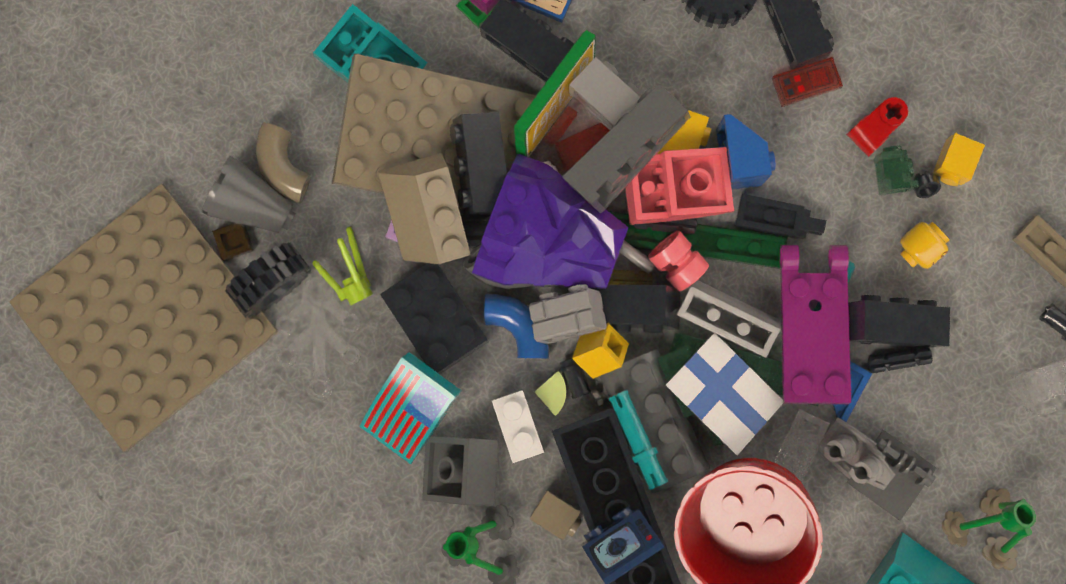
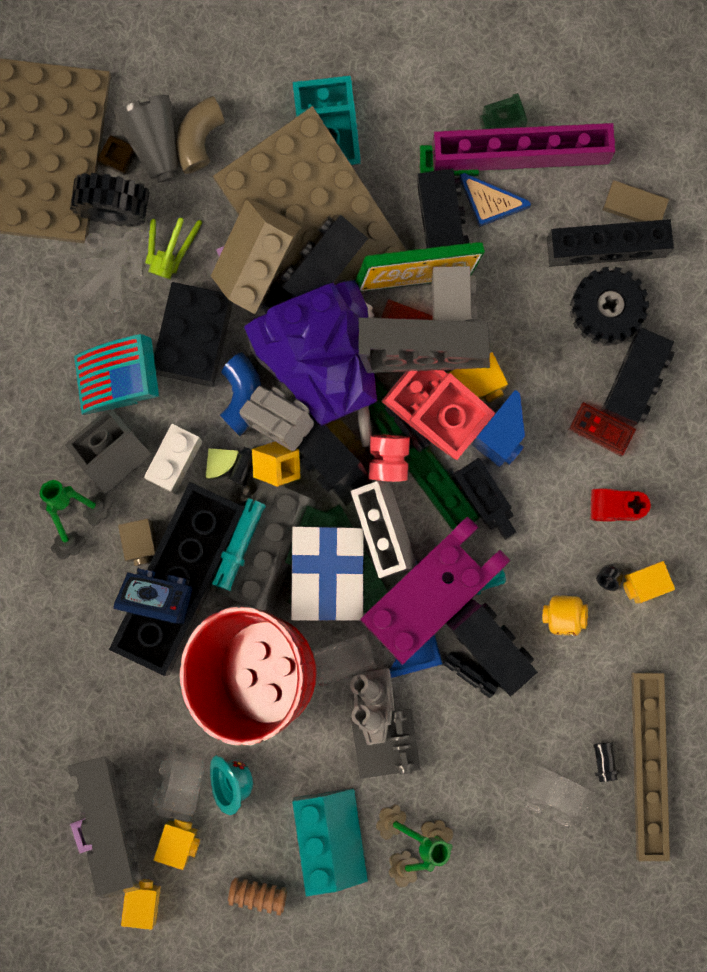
camera: 45 degrees right, 0 degrees up
(560, 126) = (402, 290): clear red tile -> none
(894, 171) = (597, 546): clear green brick -> none

